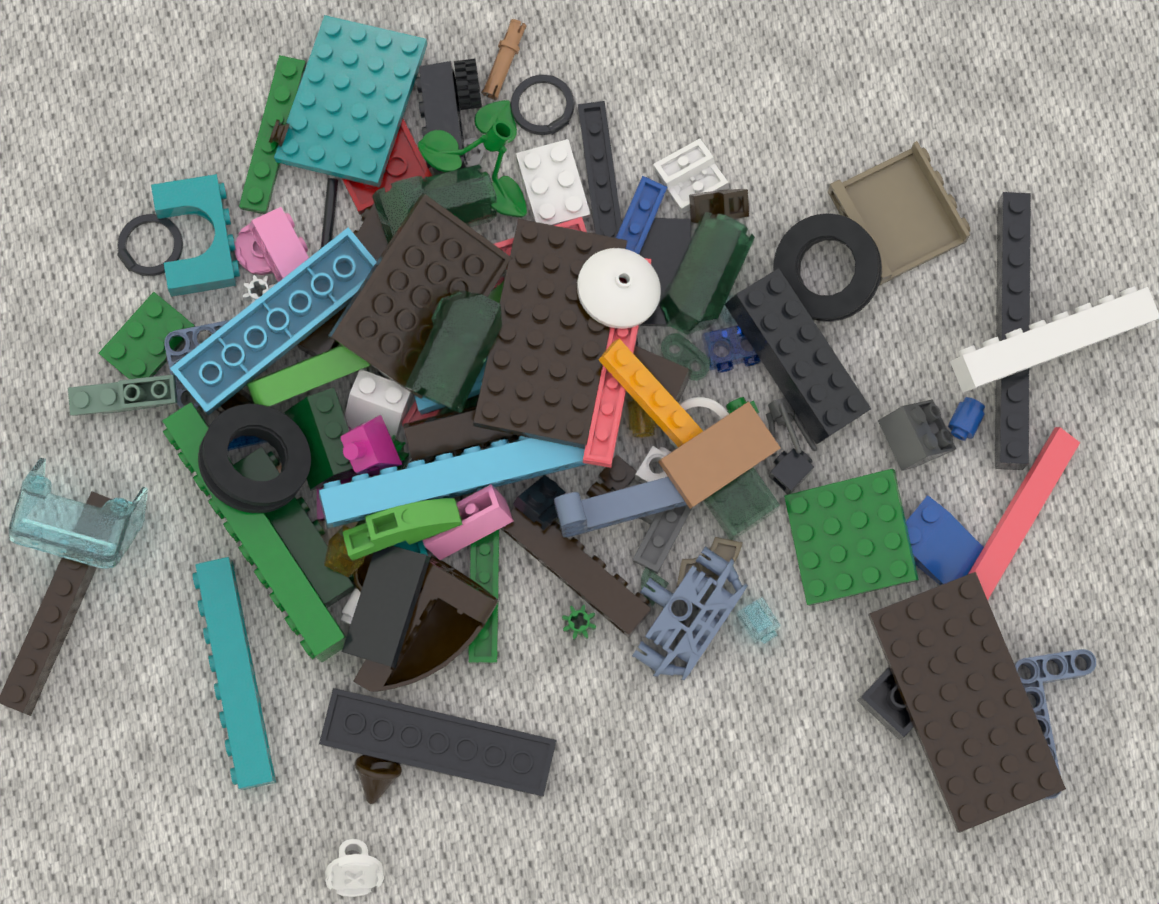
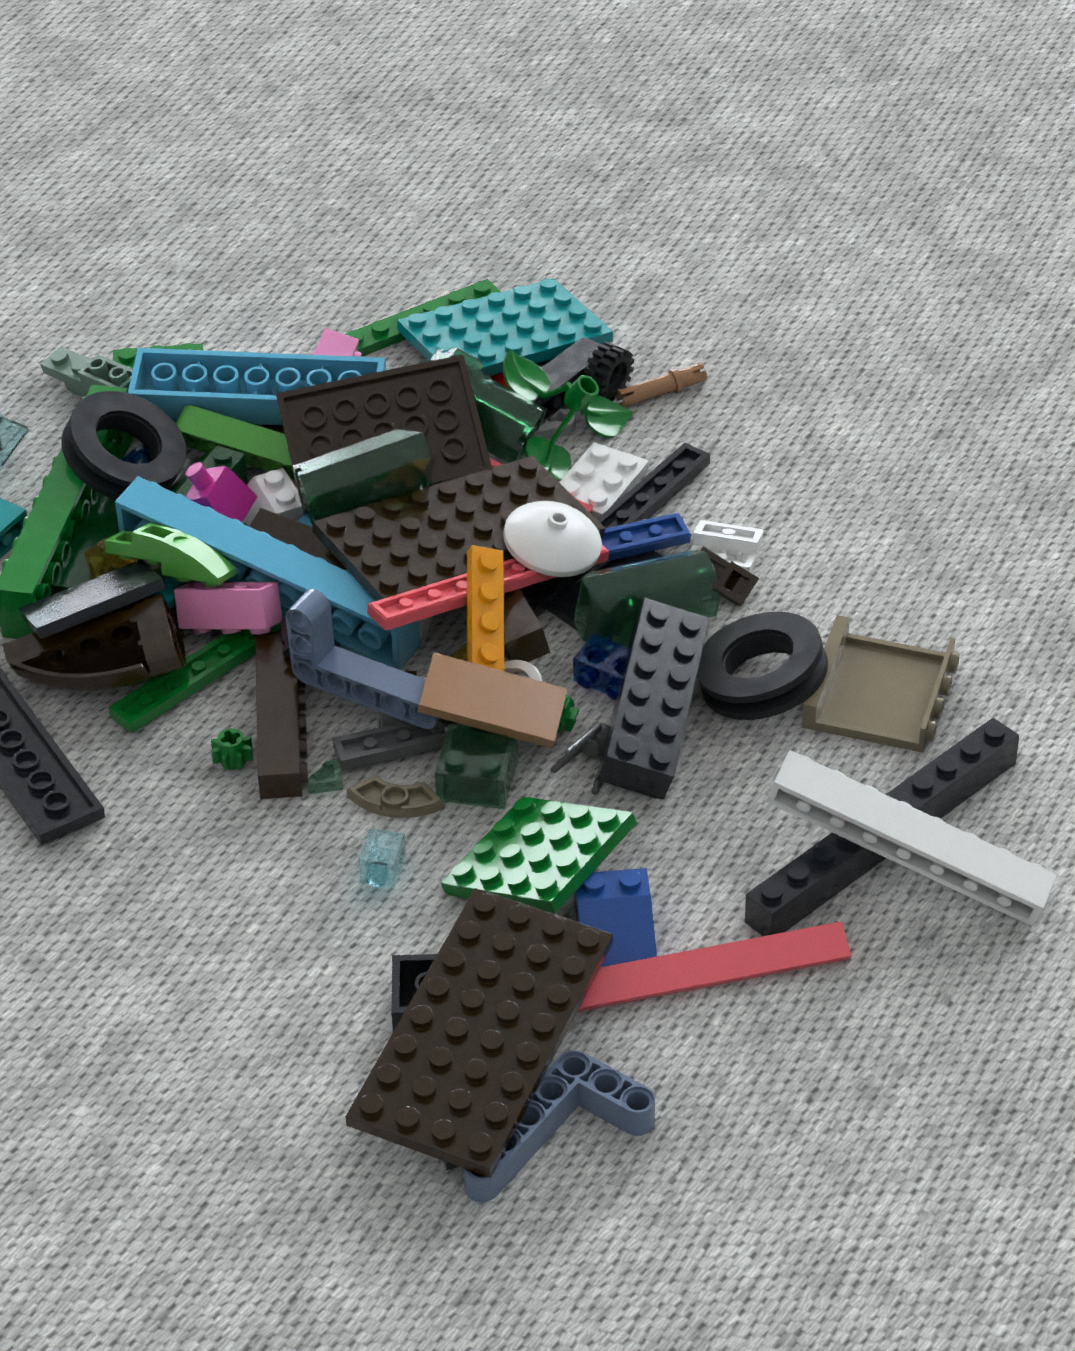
camera: 45 degrees right, 35 degrees down
(127, 259) = (222, 337): black piece -> none
(202, 198) = (294, 303): teal arch -> none
(279, 132) = (420, 304): dark brown bush -> none
(556, 125) = (655, 450): black piece -> none
(686, 356) = (563, 648): clear green plate -> none
(705, 623) = (327, 808): sand blue piece -> none
(791, 470) = (551, 779): black brick -> none
(916, 434) = (699, 836): dark grey slope -> none
(966, 418) = (759, 859): blue brick -> none

